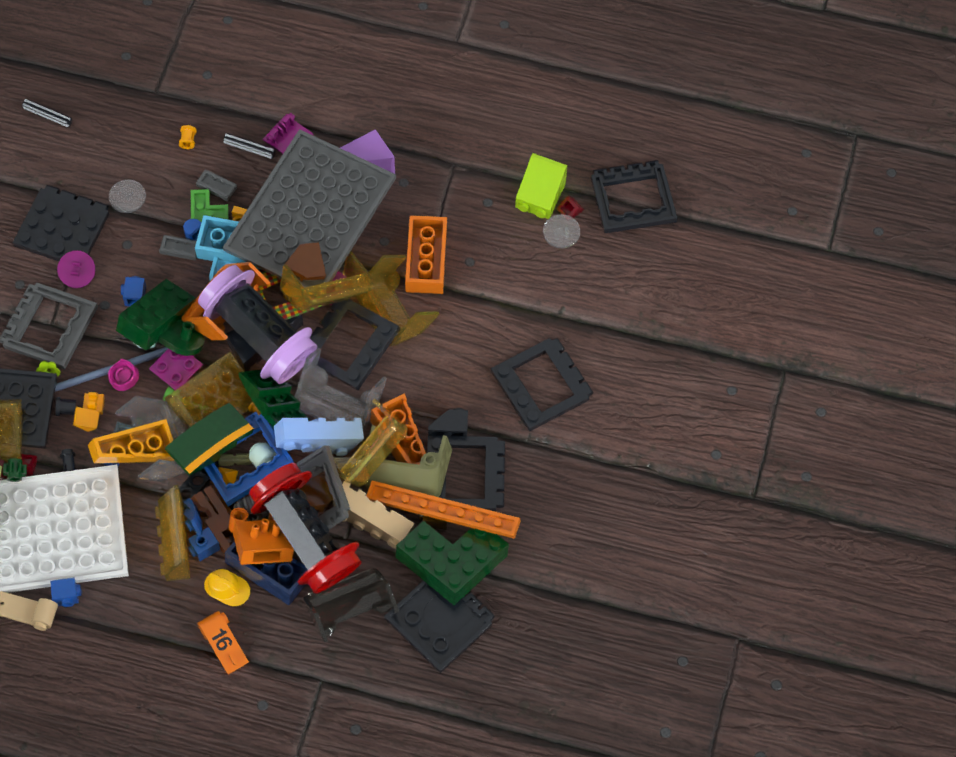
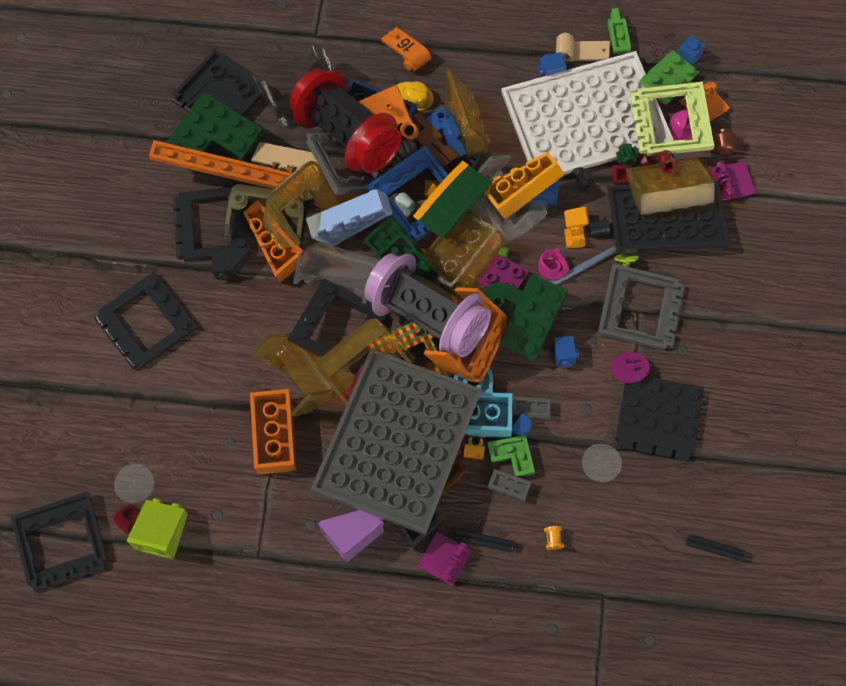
camera: 175 degrees right, 5 degrees up
(307, 262) = (389, 375): reddish brown slope -> none

